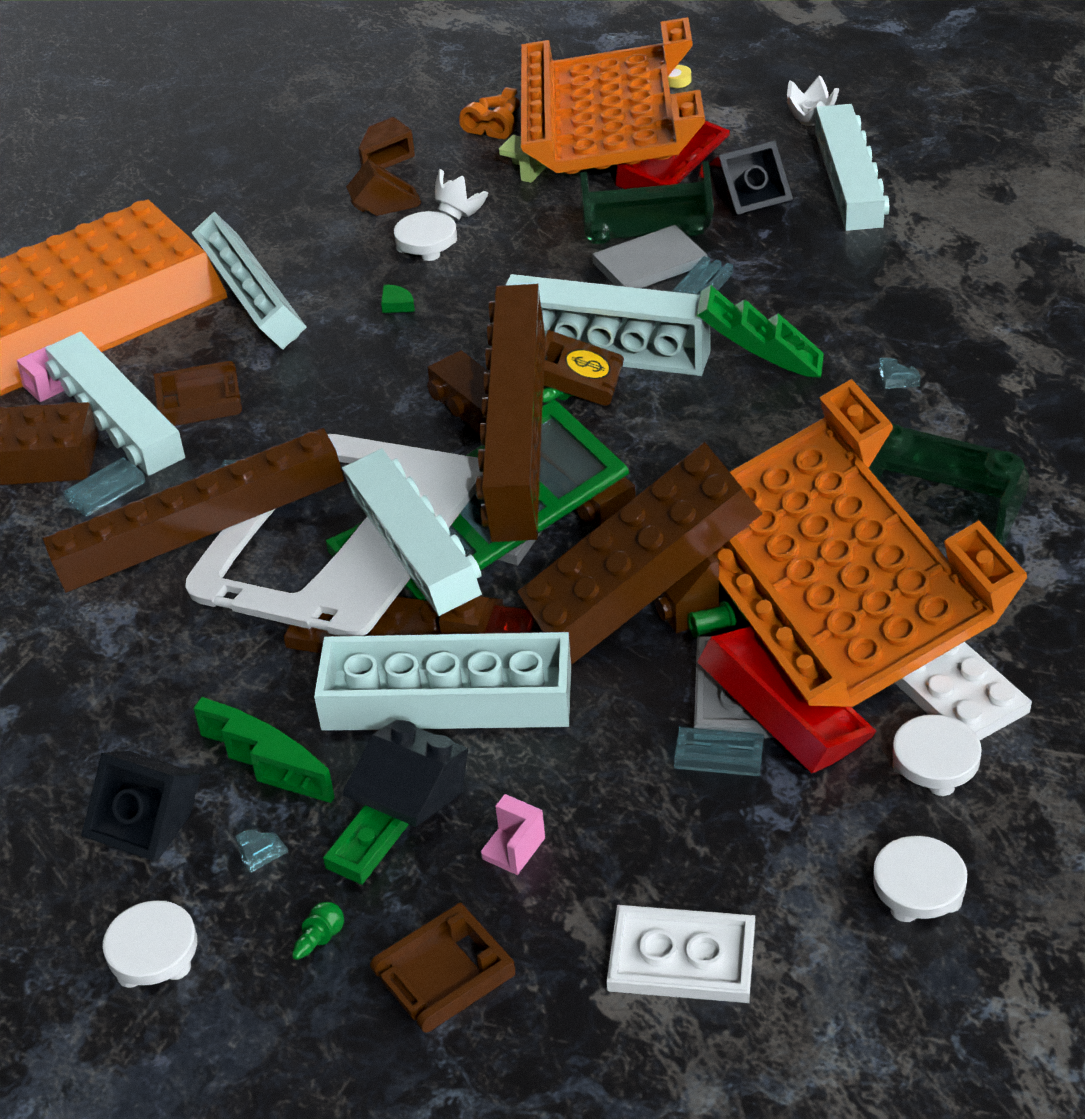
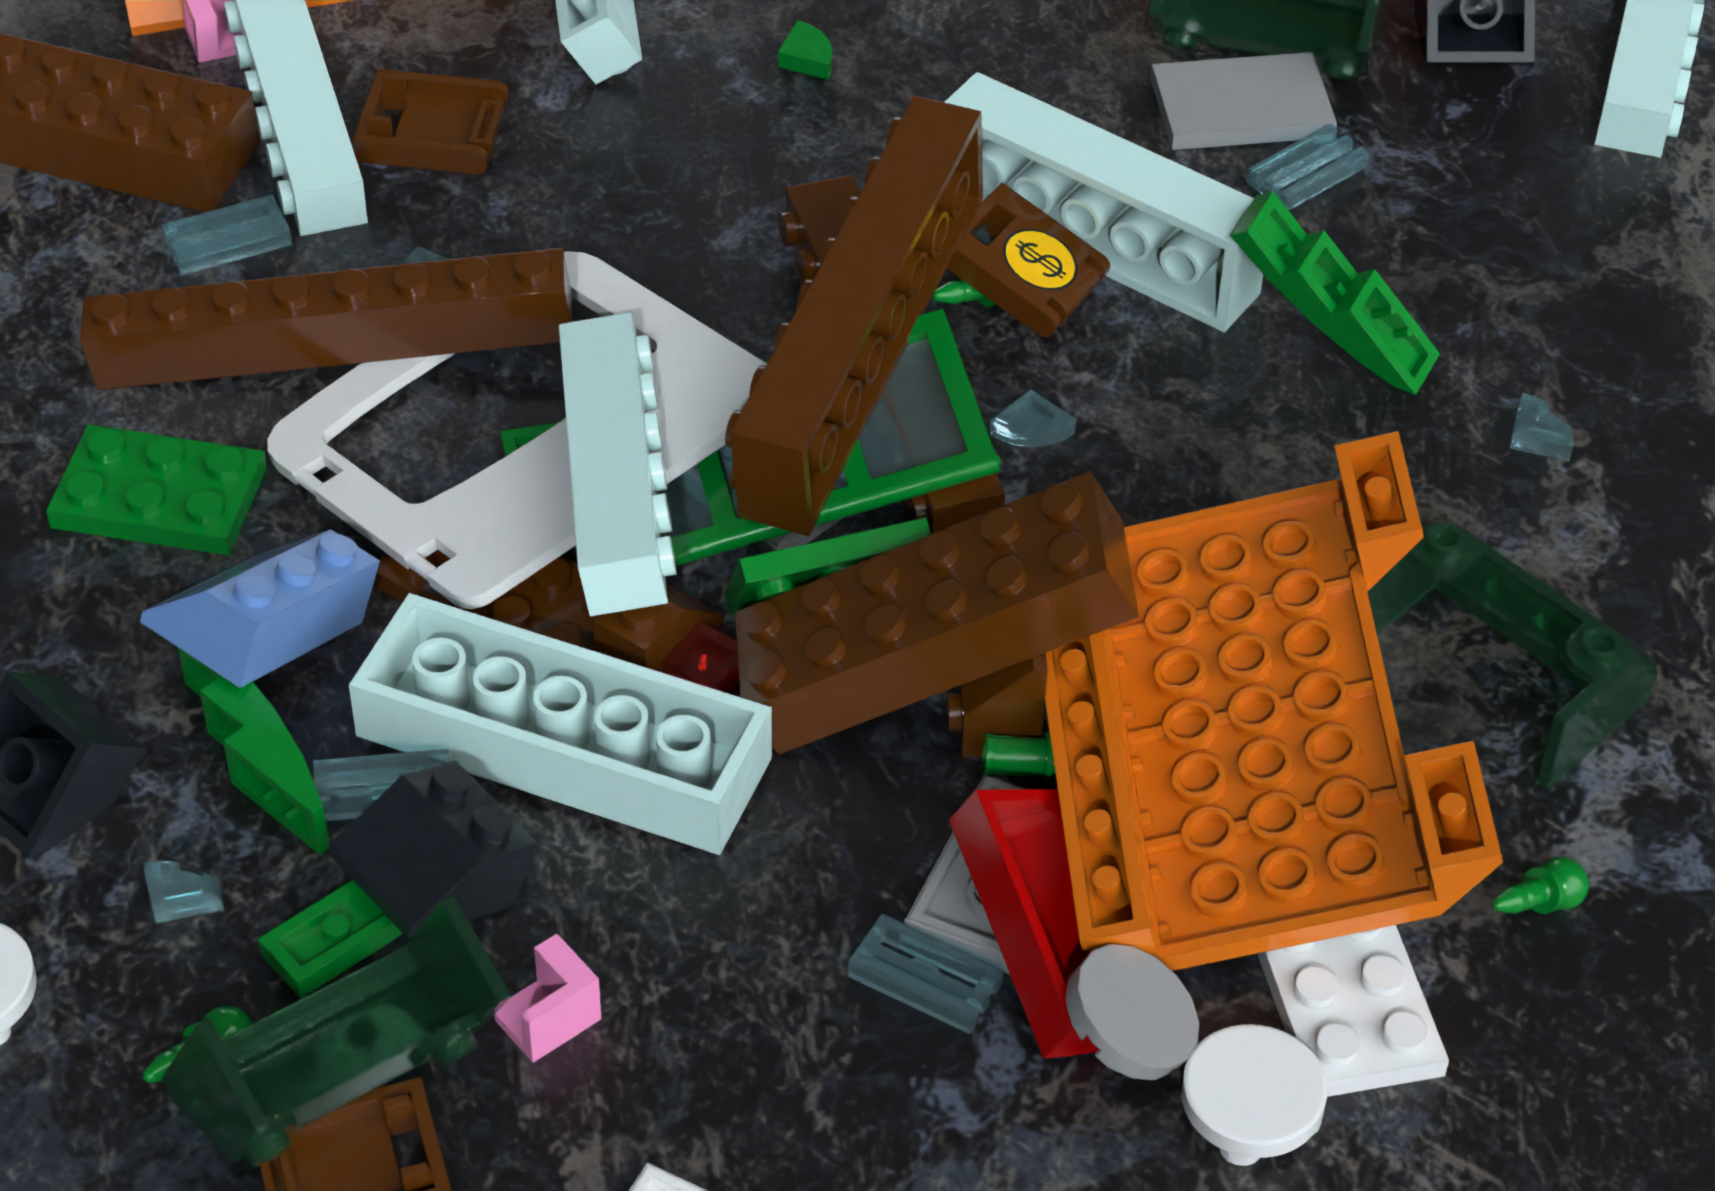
camera: 15 degrees right, 5 degrees up
(131, 634) = (157, 489): none -> green plate
(240, 671) = (270, 606): none -> medium blue slope
(344, 751) = (354, 783): none -> clear light blue tile
(378, 927) = (339, 1041): none -> clear green windscreen
(540, 556) = (782, 570): none -> green plate
(627, 447) = (1032, 422): none -> clear light blue tile
(852, 728) = (1132, 1011): none -> light grey tile
(1032, 597) = (1545, 888): none -> green bar

